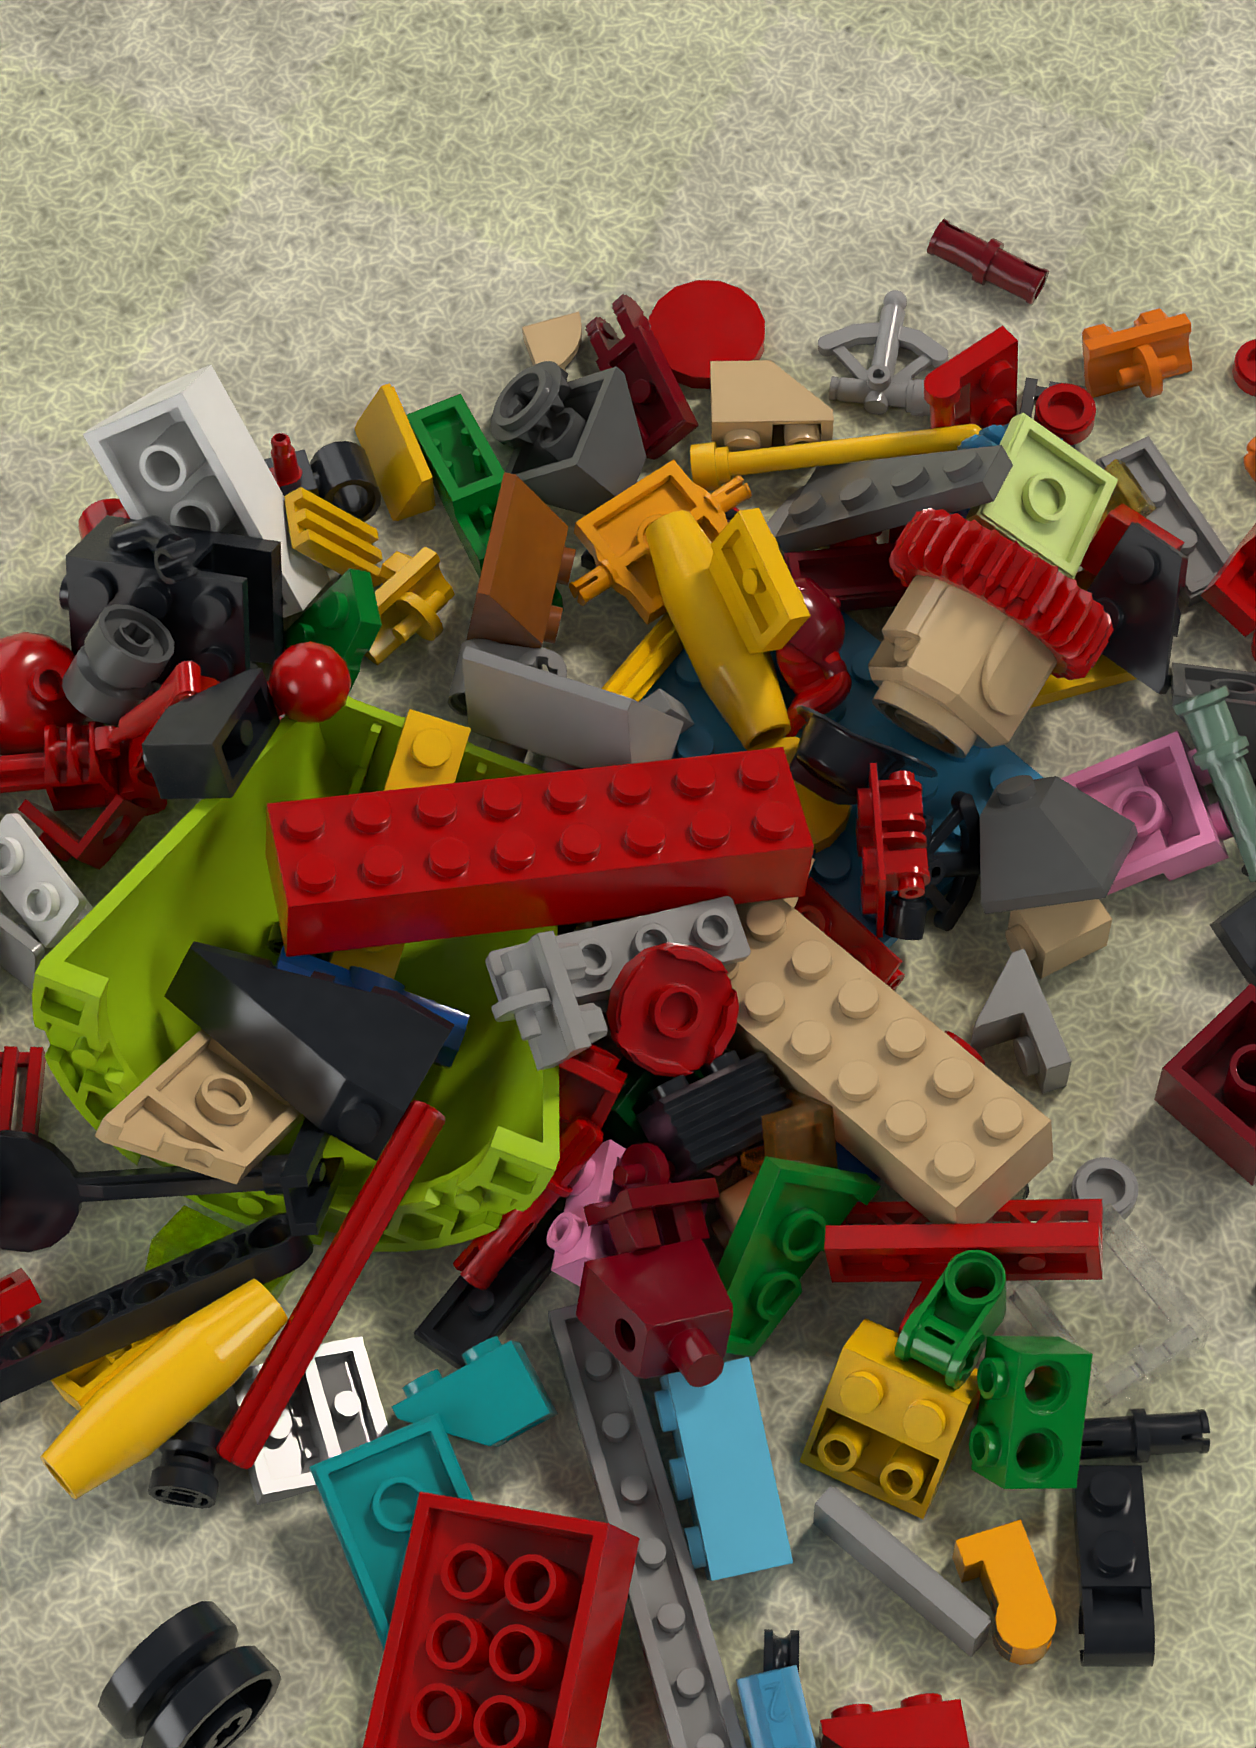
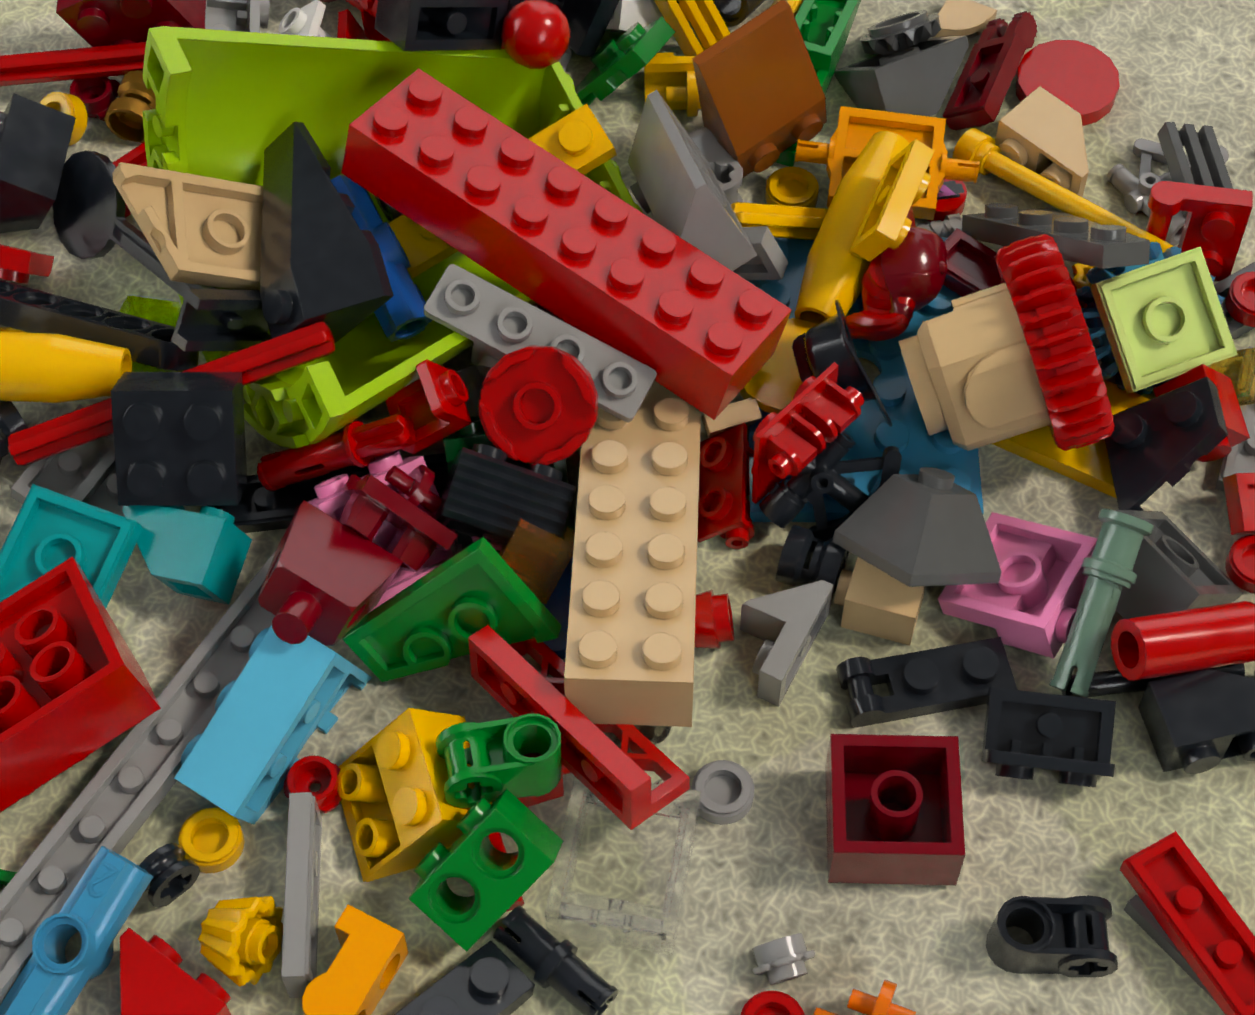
camera: 45 degrees right, 5 degrees down
(394, 1310) = (179, 438): none -> black brick
(544, 1002) = (457, 291): light grey hips -> none
(592, 634) = (792, 187): none -> yellow tile
(774, 1601) = (212, 839): none -> yellow tile
(800, 1468) = (315, 770): none -> red plate
(898, 1645) = (242, 937): none -> yellow piece
(904, 330) = (1203, 153): none -> dark grey tile
(973, 945) = (825, 564): none -> black wheel
(1154, 961) = (924, 681): none -> black plate

